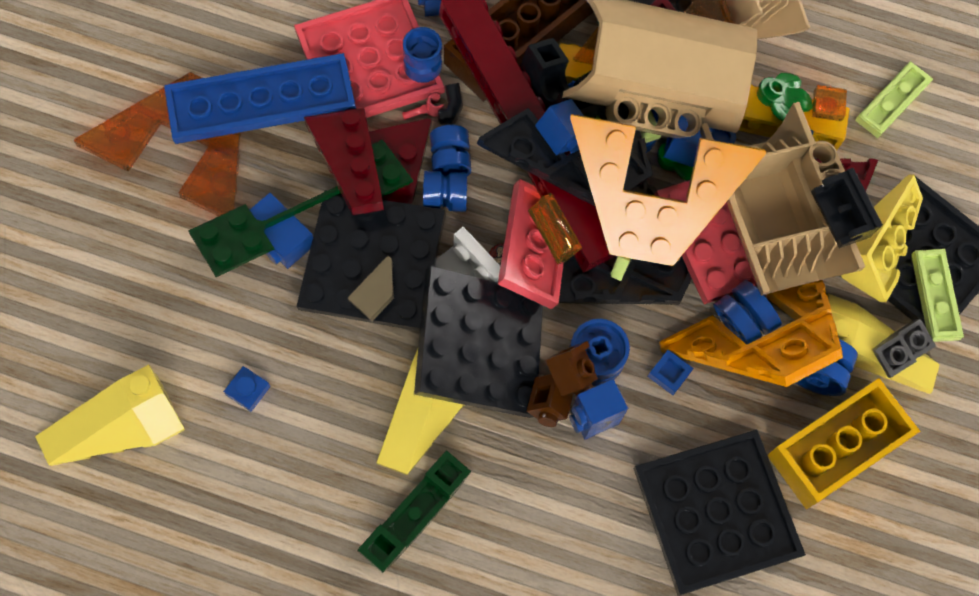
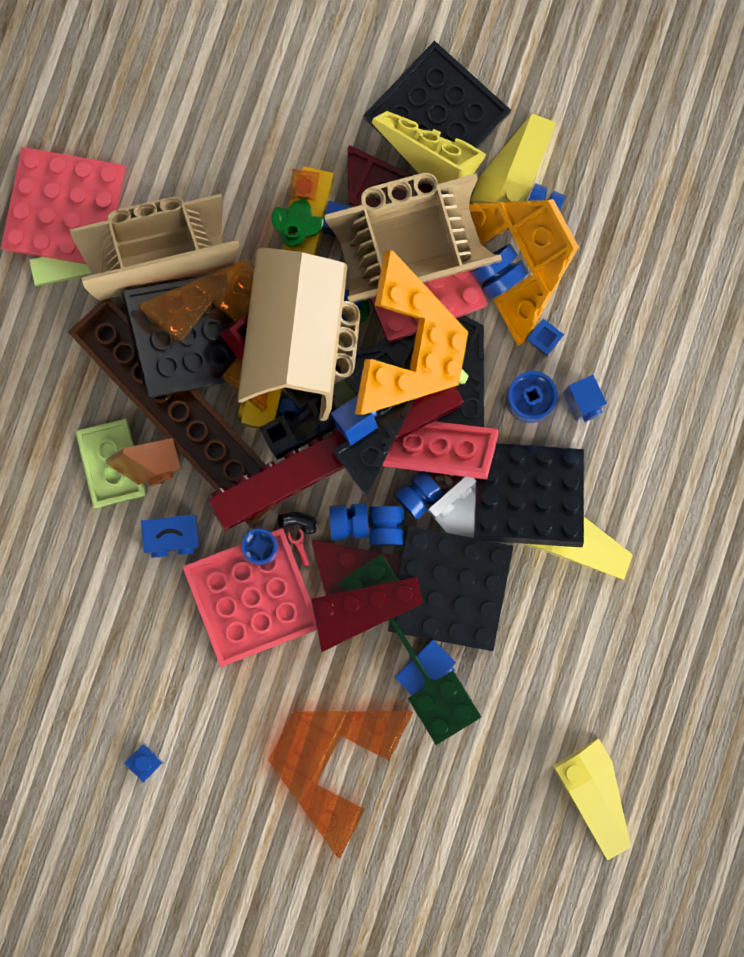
camera: 85 degrees left, 15 degrees up
(247, 389) = (564, 689): blue plate -> none
(258, 98) = (302, 692): blue plate -> none
(375, 290) = (485, 582): dark tan tile -> none
(415, 512) = (666, 548): dark green slope -> none
(479, 222) = (419, 494): none -> blue wheel
(547, 403) = (575, 436): reddish brown brick -> none
(554, 228) = (431, 430): clear yellow tile -> none
(572, 369) = (557, 418): reddish brown brick -> none
(718, 512) = (659, 305): black plate -> none
(843, 443) = (606, 201): yellow brick -> none
(846, 208) = (430, 185): black hinge -> none
(894, 99) = (282, 122): yellowish green tile -> none
(903, 347) = (528, 148): flat silver slope -> none
(937, 295) = (476, 109): yellowish green tile -> none

